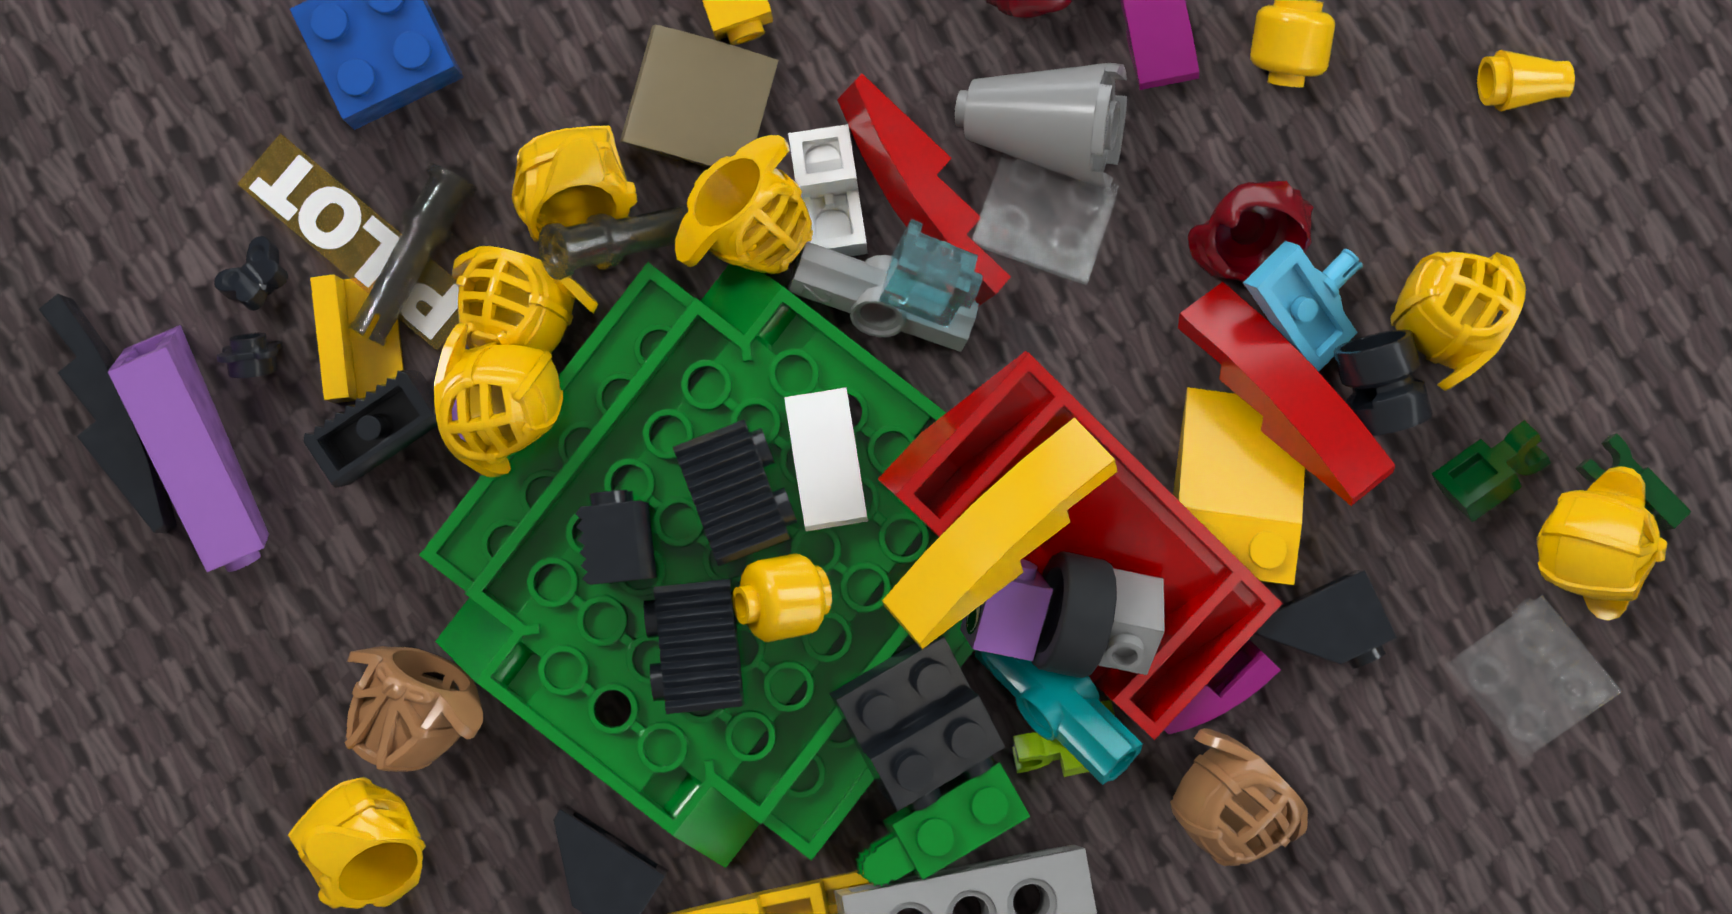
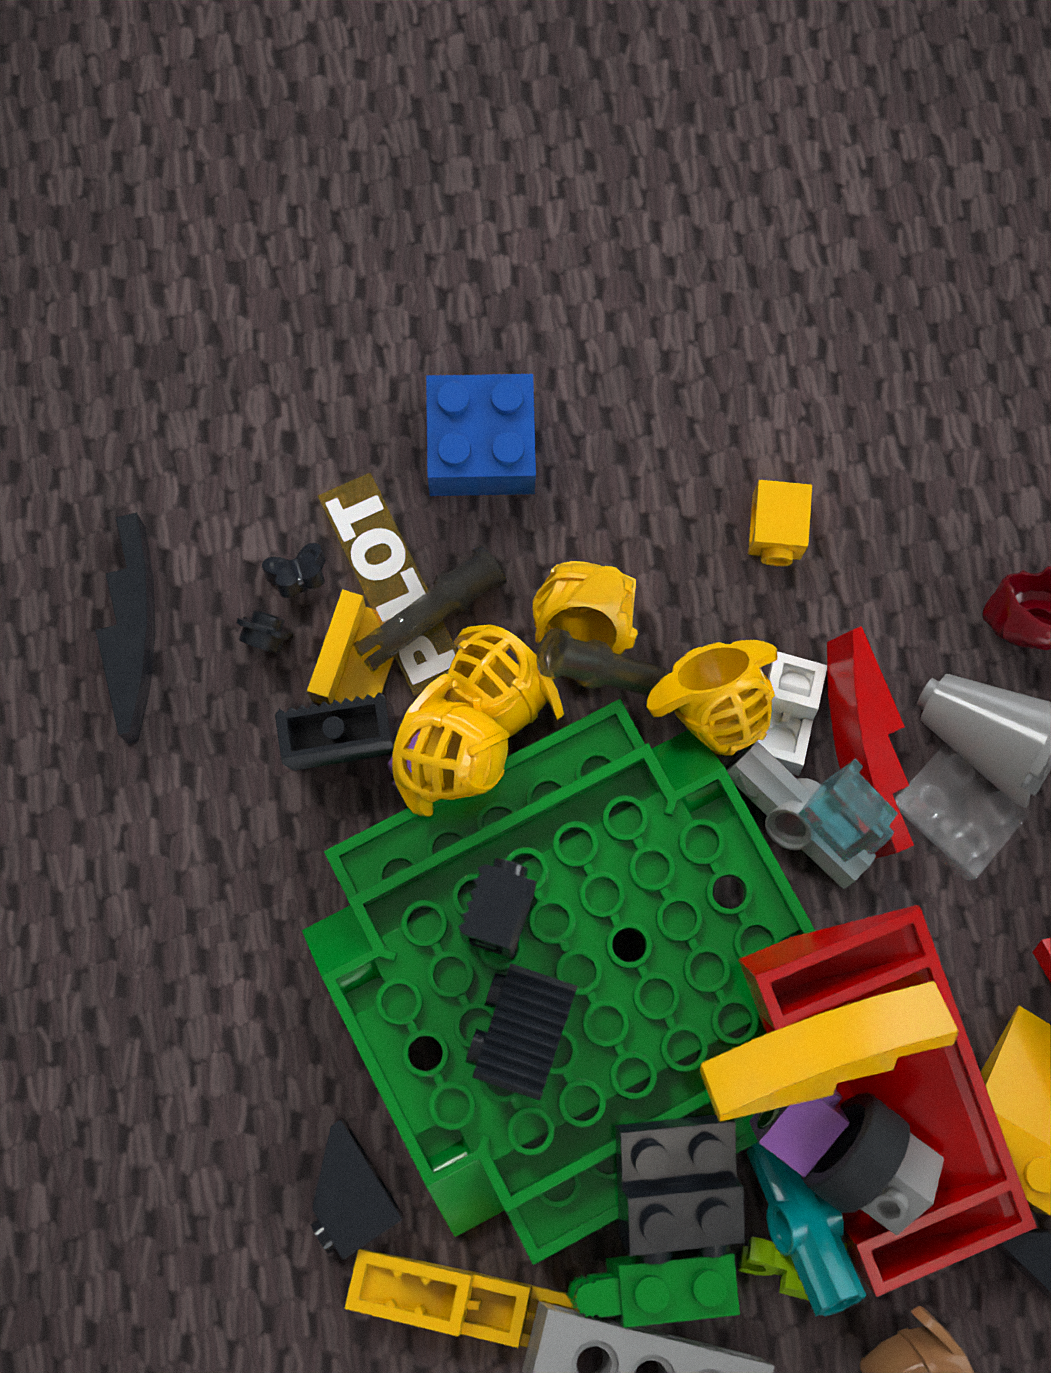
camera: 20 degrees right, 10 degrees down
(190, 449) = (179, 685): medium lavender slope -> none
(359, 845) = (159, 1073): yellow piece -> none
(407, 717) = (248, 981): medium nougat piece -> none
(697, 97) = (714, 589): dark tan slope -> none
(734, 492) = (612, 915): black brick -> none
(782, 597) = (614, 1023): yellow head -> none
(826, 459) = (700, 924): white slope -> none
(1228, 688) = (961, 1280): magenta slope -> none

